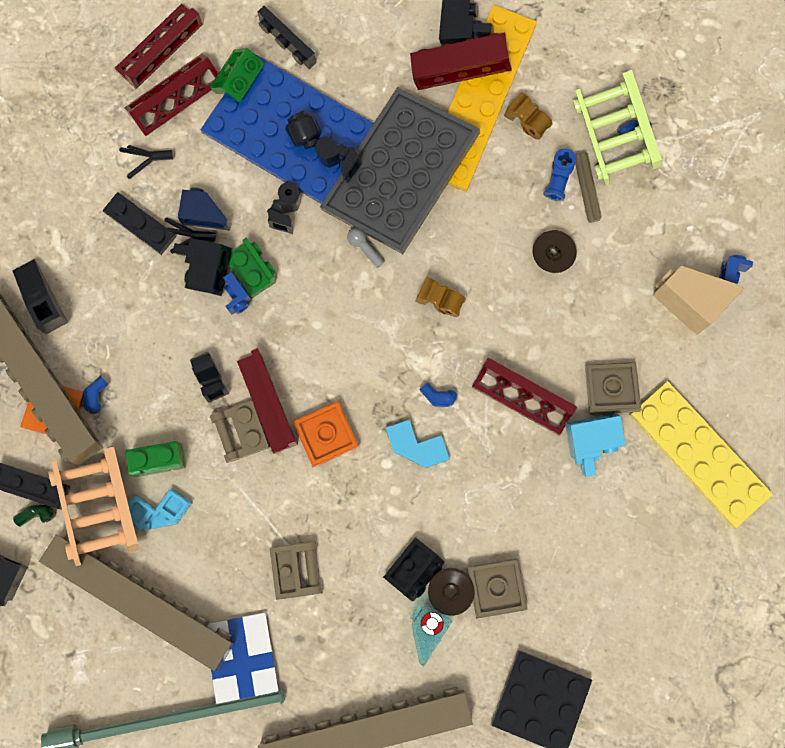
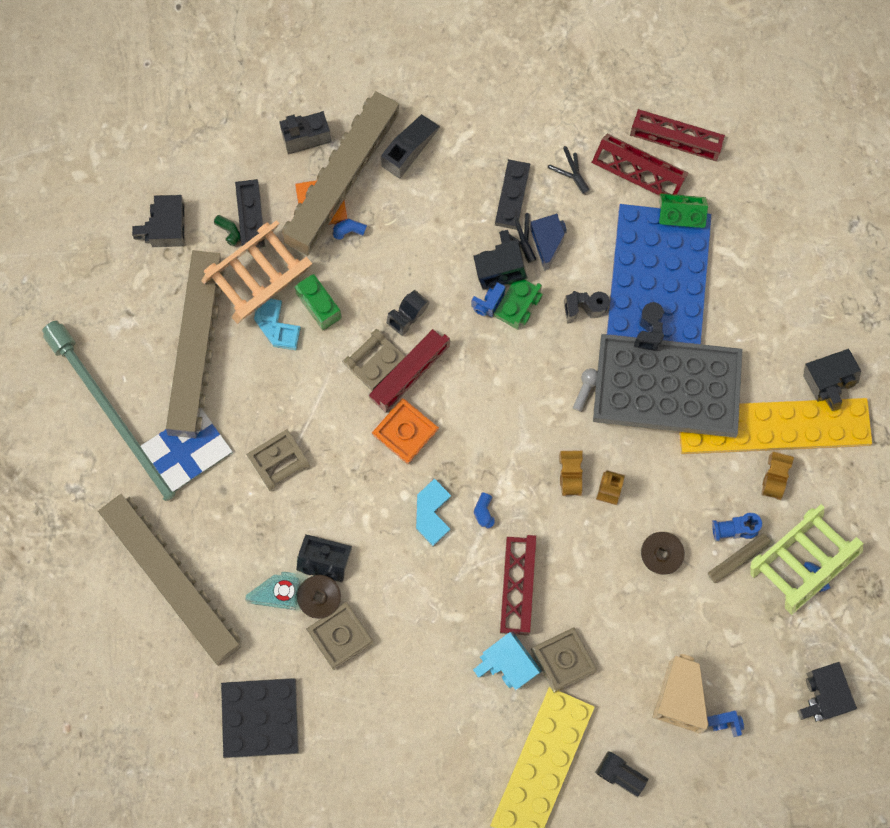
camera: 65 degrees right, 5 degrees down
(286, 38) = (738, 234): black plate -> none
(303, 129) = (660, 286): black head -> none
(461, 61) = (794, 392): dark red brick -> none
(471, 267) = (610, 487): none -> pearl gold leg
(735, 389) = (615, 771): none -> black piece
(747, 168) = (830, 692): none -> black hinge

